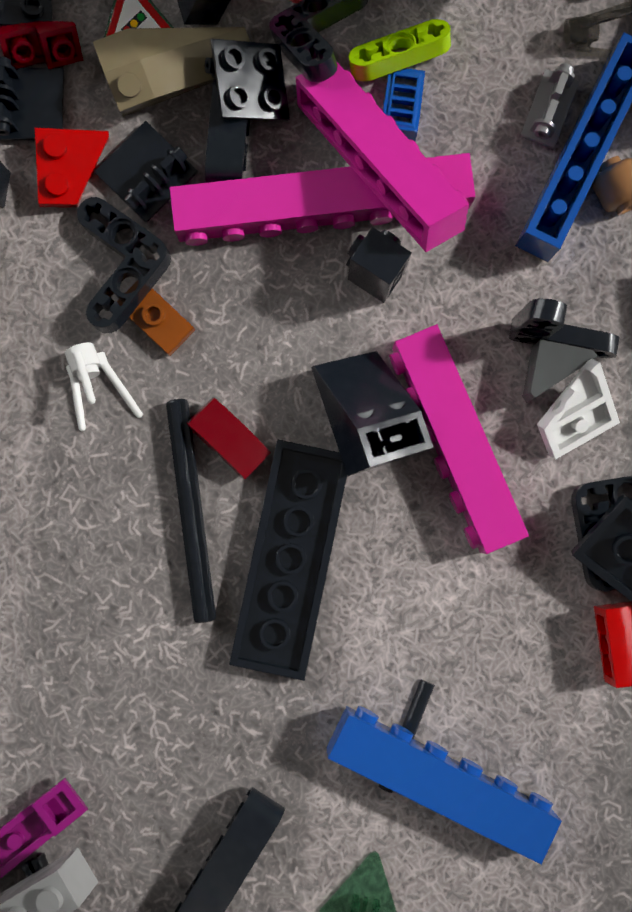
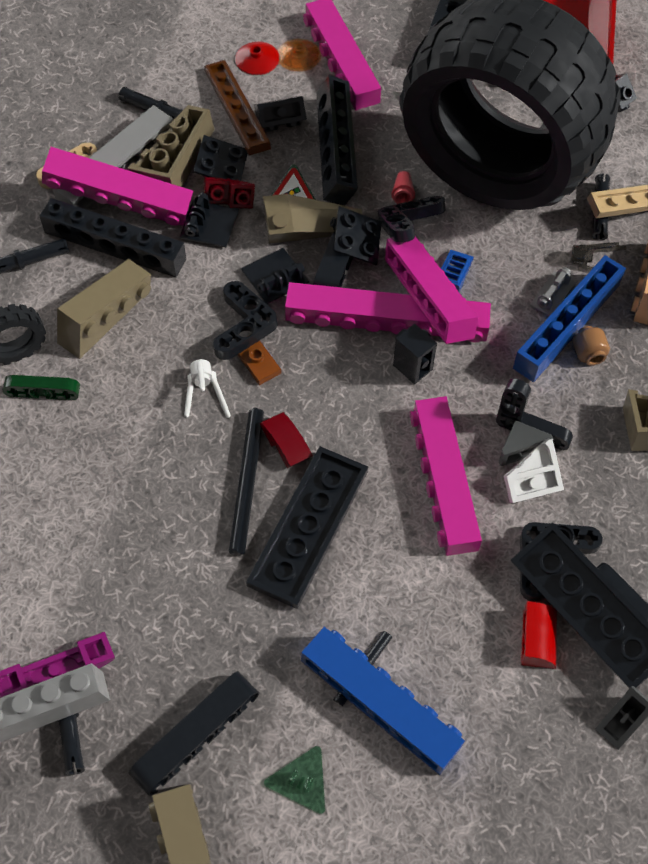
camera: 15 degrees right, 25 degrees down
(66, 164) = (224, 260): red wing -> none
(370, 412) = (388, 444): black slope -> none
(421, 41) = (459, 241): lime beam -> none

